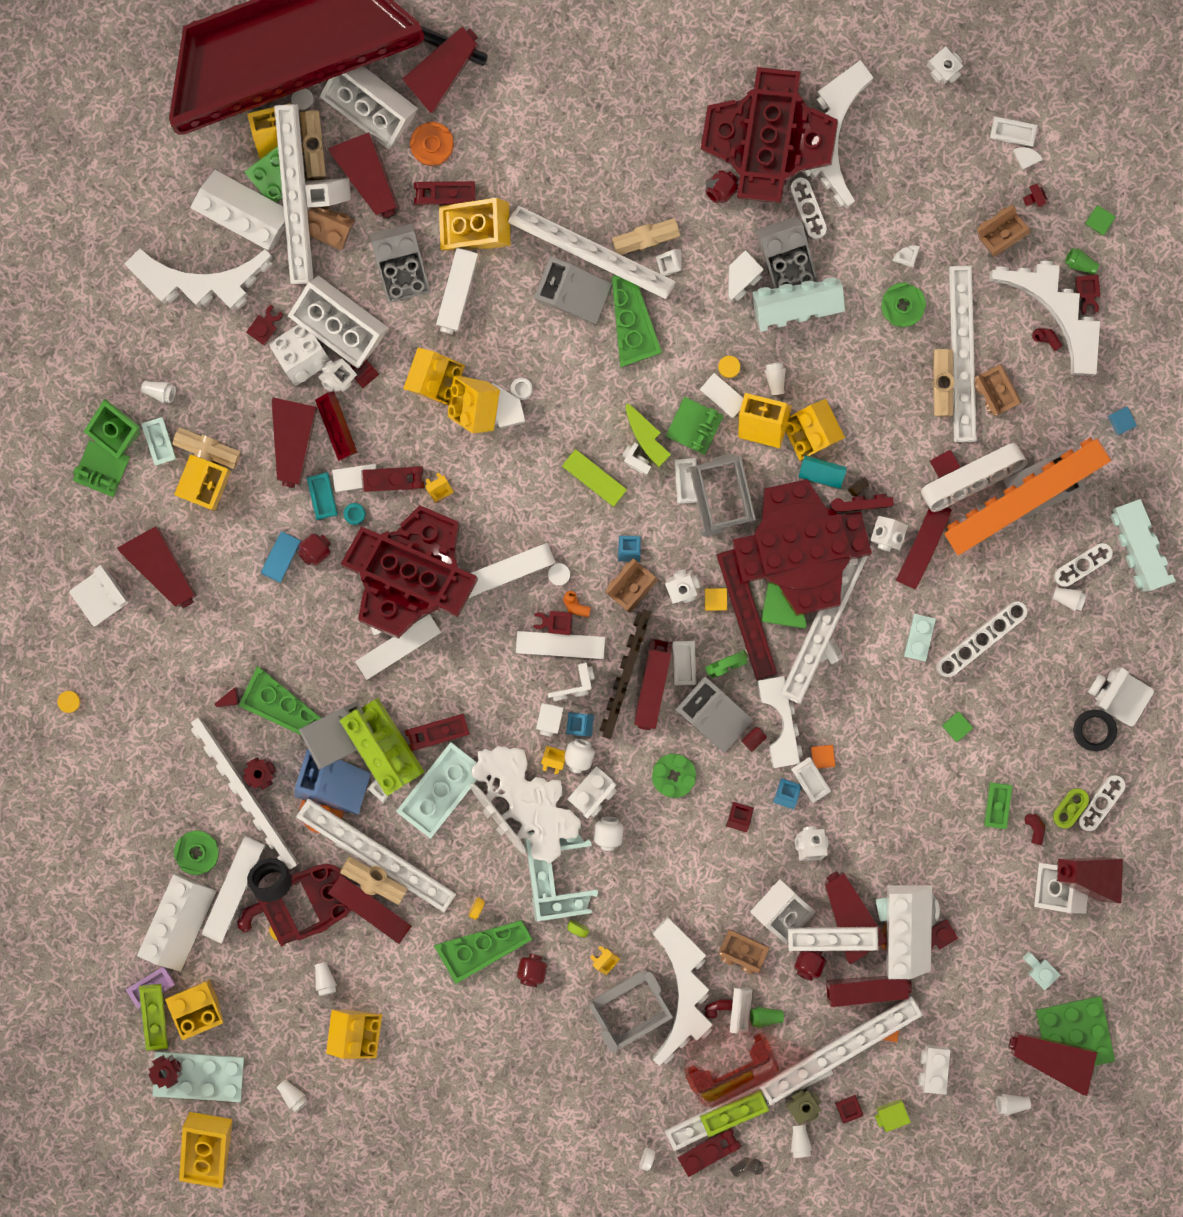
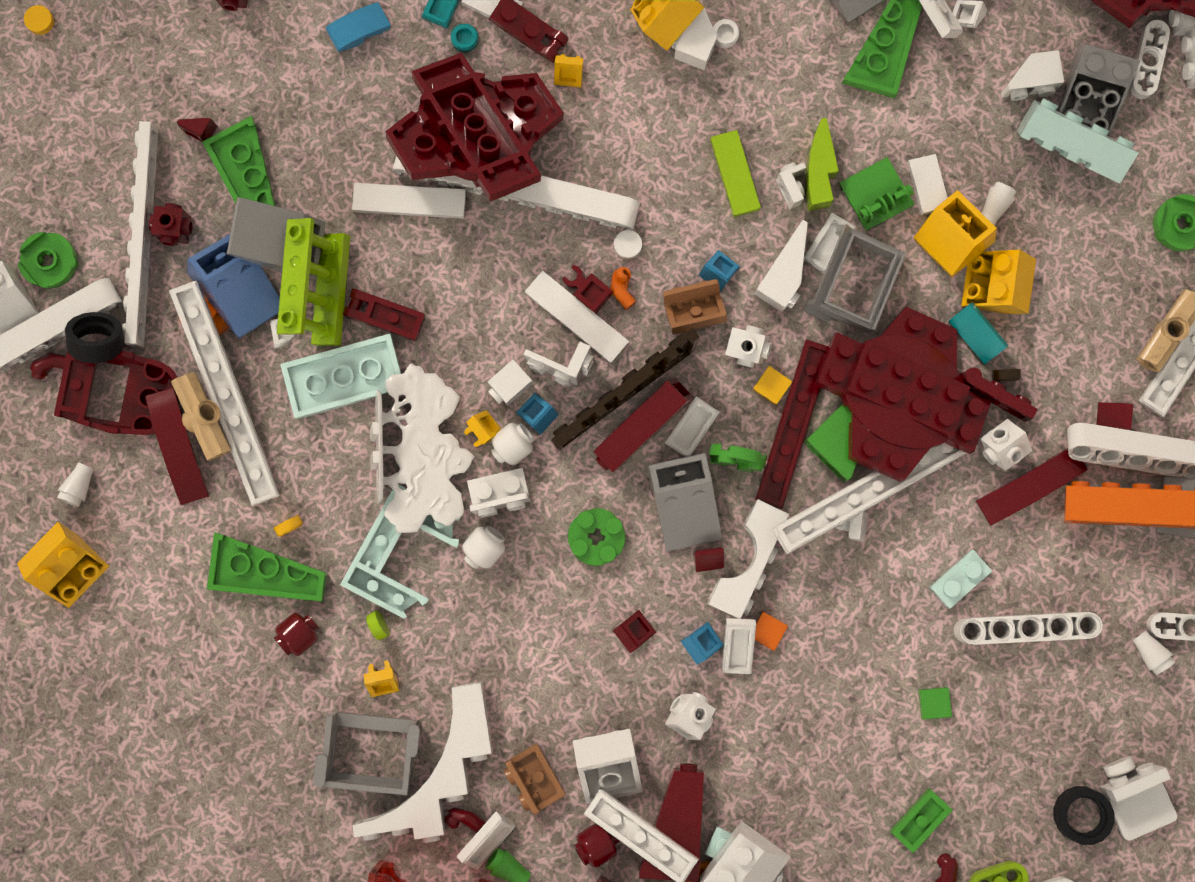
camera: 30 degrees right, 5 degrees down
(314, 549) = (397, 41): dark red head -> none
(673, 523) = (785, 275): none -> white slope
(729, 366) = (955, 159): yellow tile -> none

